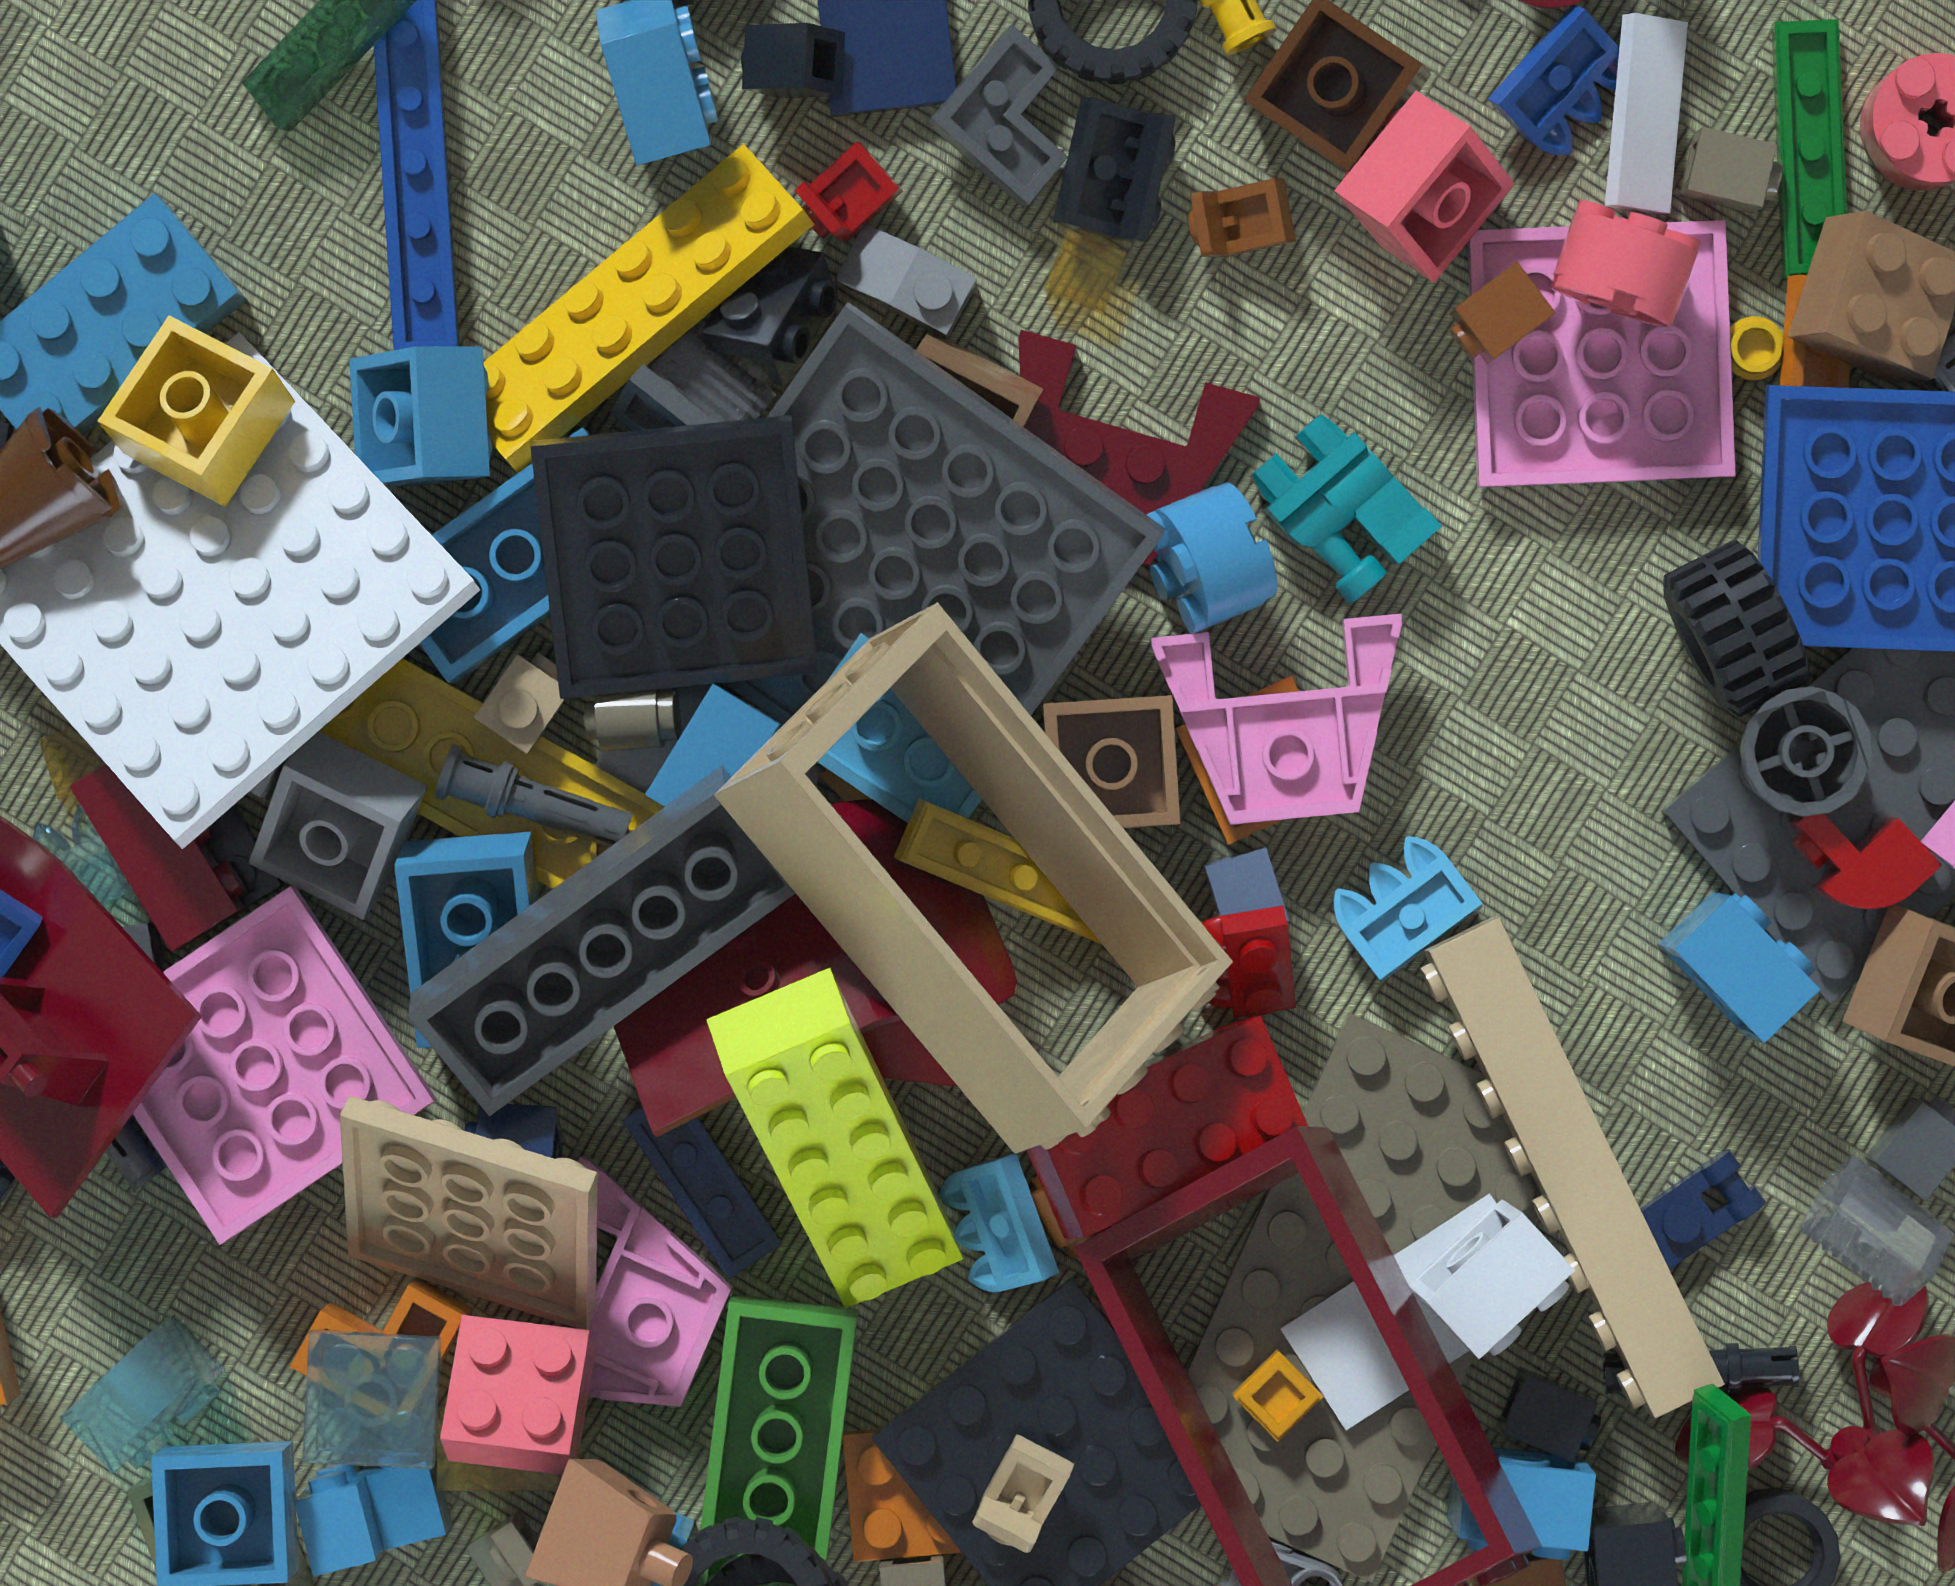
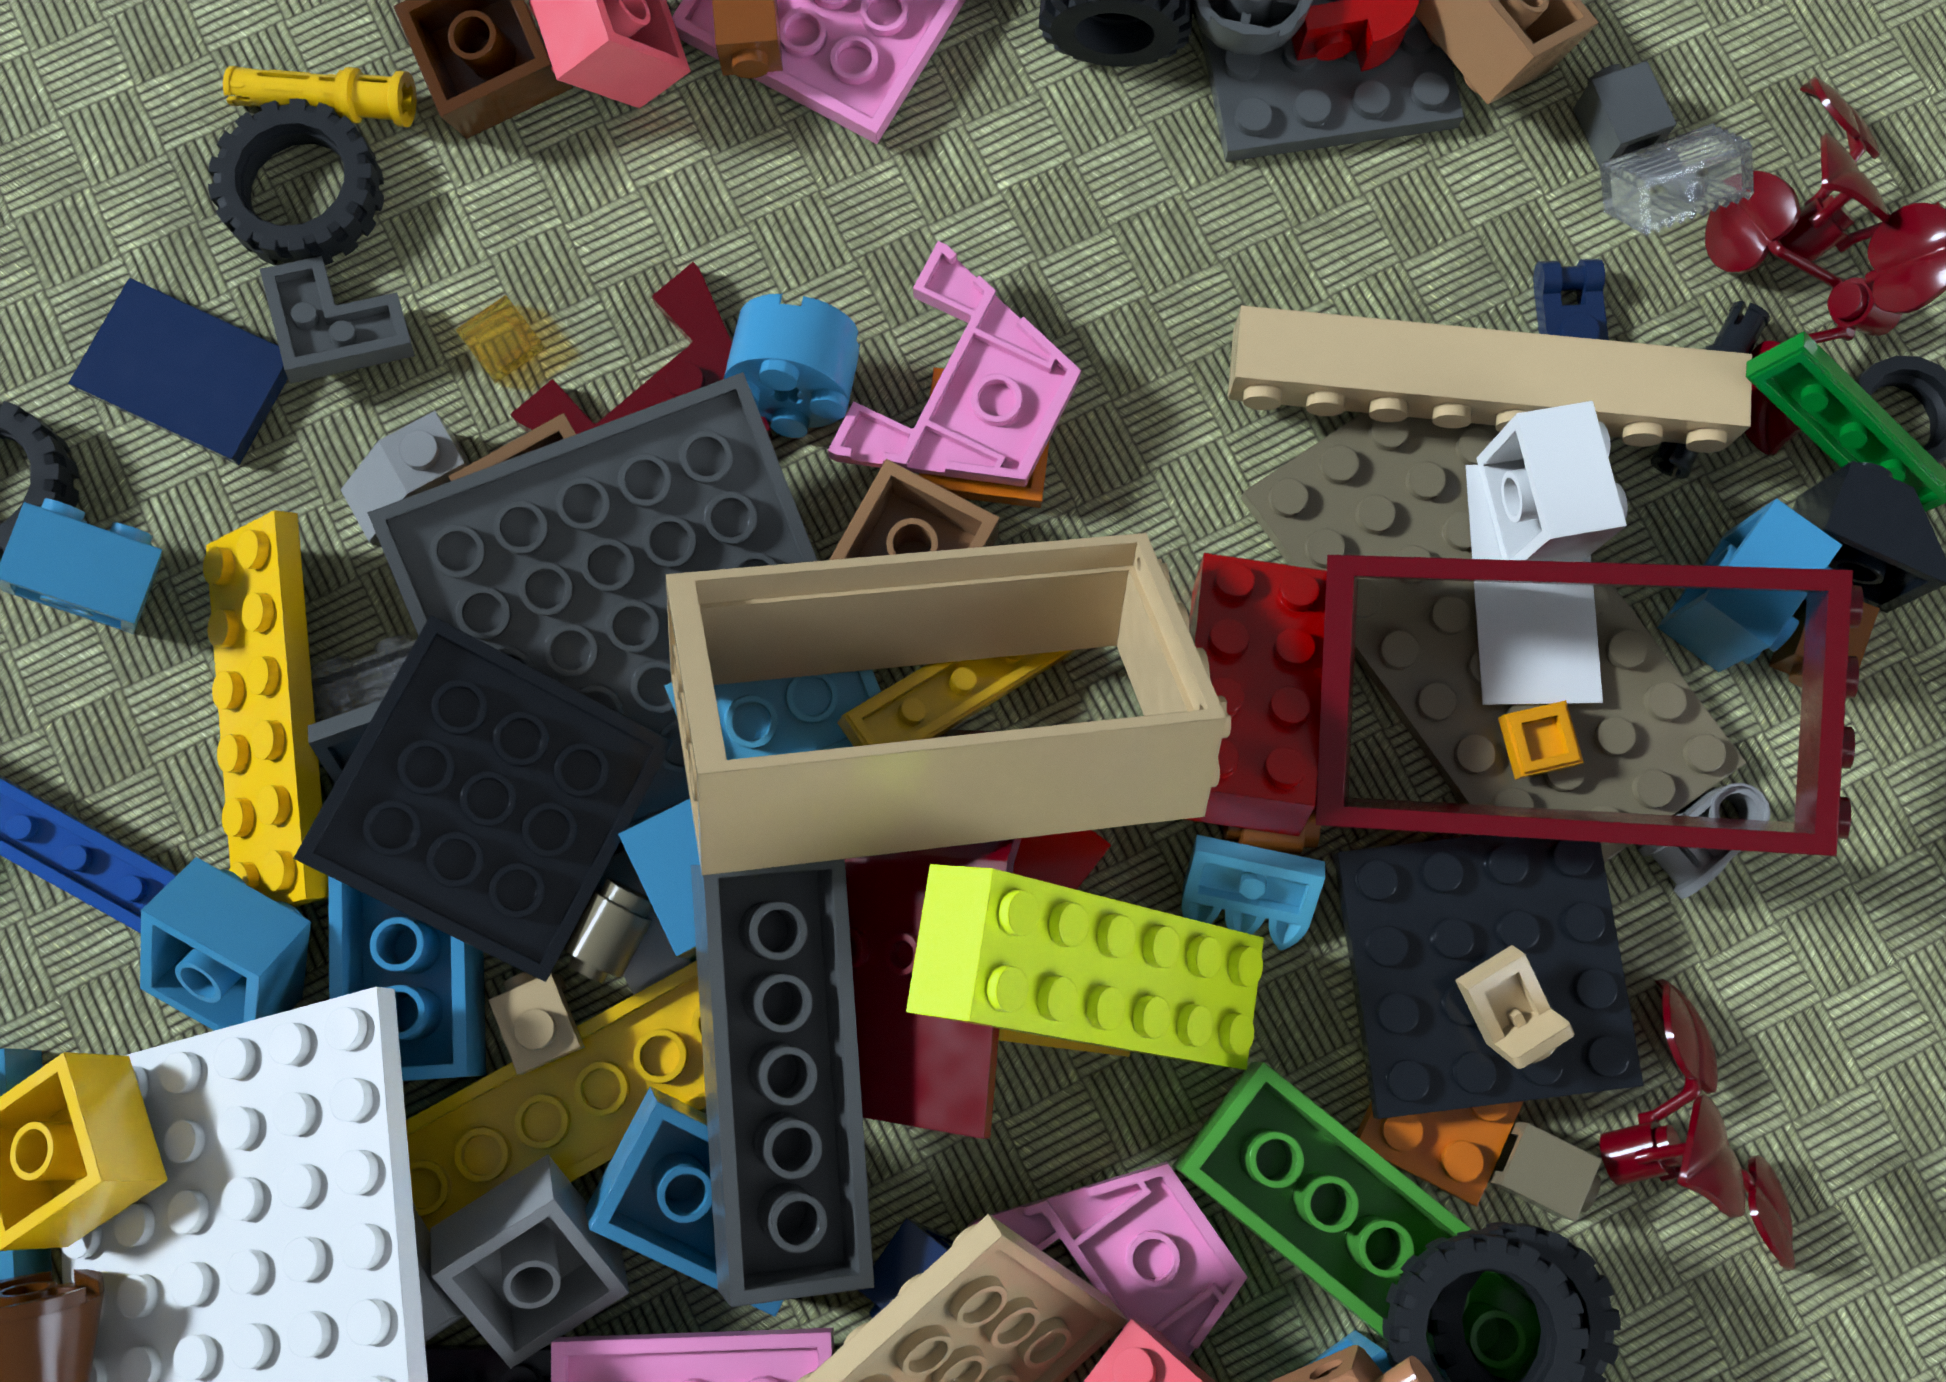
camera: 65 degrees left, 10 degrees down
(504, 791) = (599, 1087): dark grey pin -> none
(707, 1192) = (1065, 1131): dark blue plate -> none
(775, 313) = (348, 595): black bracket -> none
(793, 60) = (160, 456): black brick -> none
(848, 194) = (304, 480): red bracket -> none
(1115, 170) = (434, 261): black bracket -> none
(1241, 218) = (540, 187): dark orange bracket -> none
(1243, 882) = (1093, 507): sand blue brick -> none
(1261, 968) = (1171, 530): red plate -> none
(1341, 488) = (812, 233): teal hips -> none
(1407, 911) = (1187, 392): medium azure plate -> none
(1549, 1415) = (1683, 527): black brick -> none
(1740, 965) = (1396, 152): dark azure brick -> none

